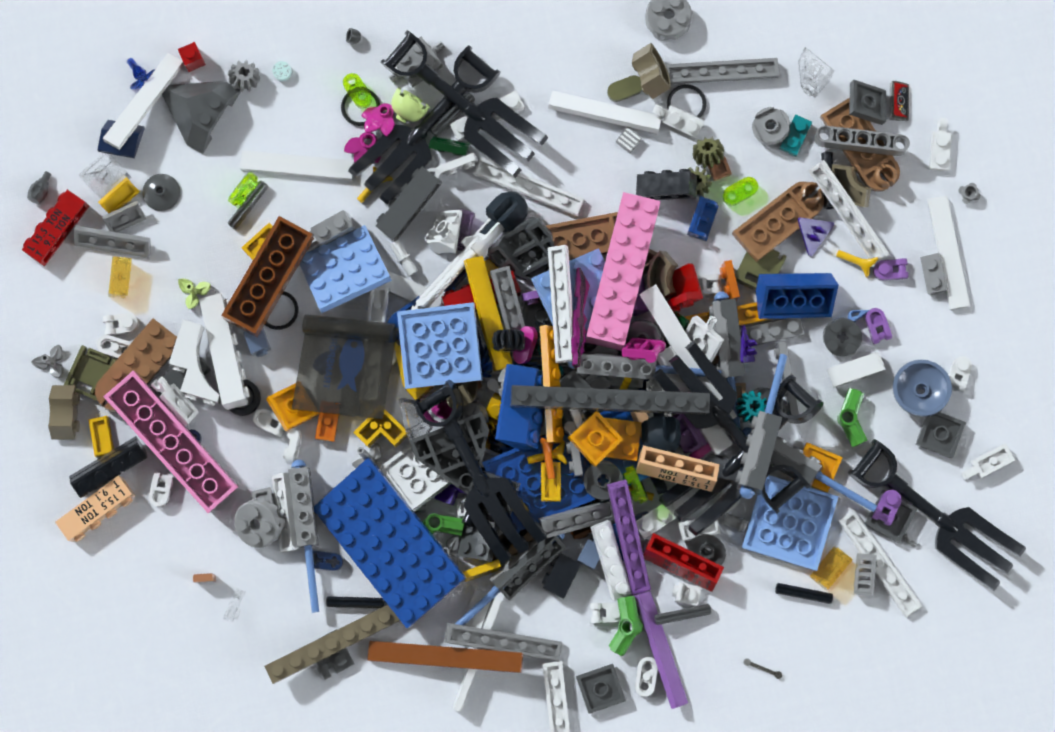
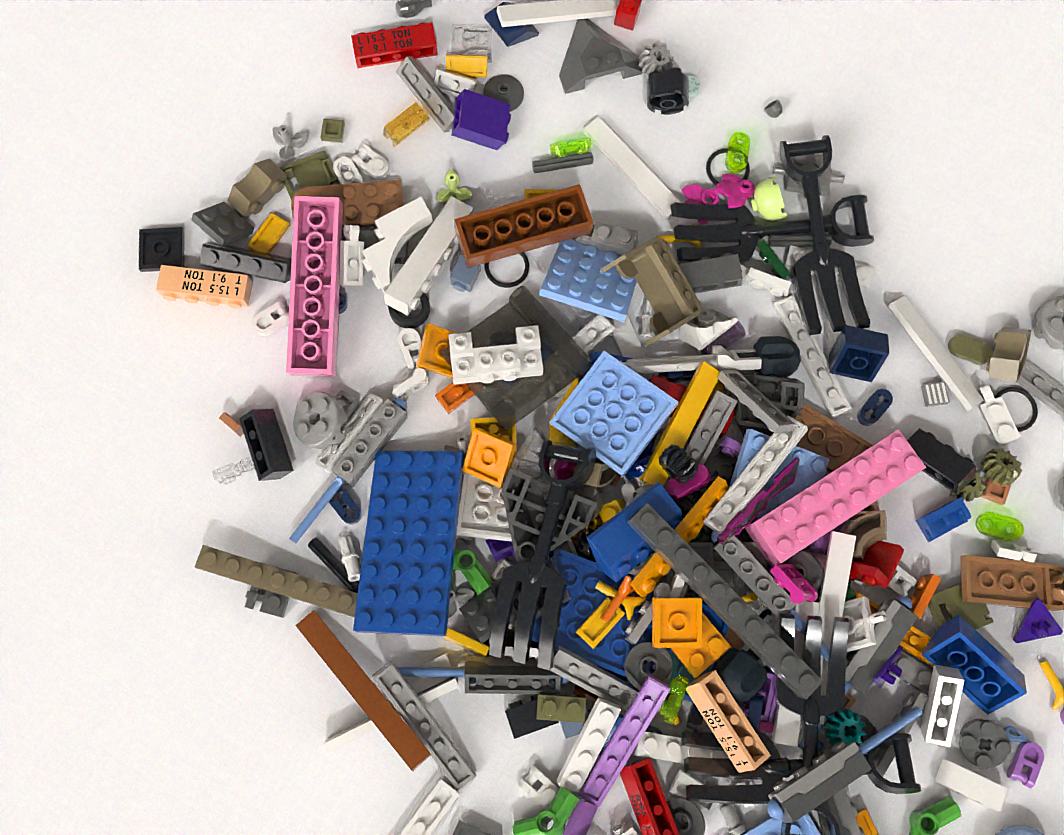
camera: 35 degrees right, 5 degrees down
(40, 512) = (160, 248): none -> black tile
(66, 457) = (222, 223): none -> dark grey plate
(72, 326) = (332, 130): none -> olive tile
(167, 227) = (481, 119): none -> dark purple brick
(239, 569) = (266, 444): none -> black brick
(272, 91) = (667, 91): none -> black brick
(335, 382) = (496, 362): none -> white bracket
(361, 588) = (350, 558): none -> white axle
(388, 445) = (489, 457): none -> light orange plate
(393, 231) = (662, 285): none -> dark tan windscreen
(520, 256) = (756, 401): none -> light grey plate
(557, 161) = (858, 353): none -> dark blue brick
(574, 554) = (561, 708): none -> olive plate
(602, 184) = (871, 404): none -> dark blue beam
(690, 447) = (755, 711): none -> dark blue beam
(760, 200) = (1010, 551): none -> white plate
(796, 338) = (942, 705): none -> white brick

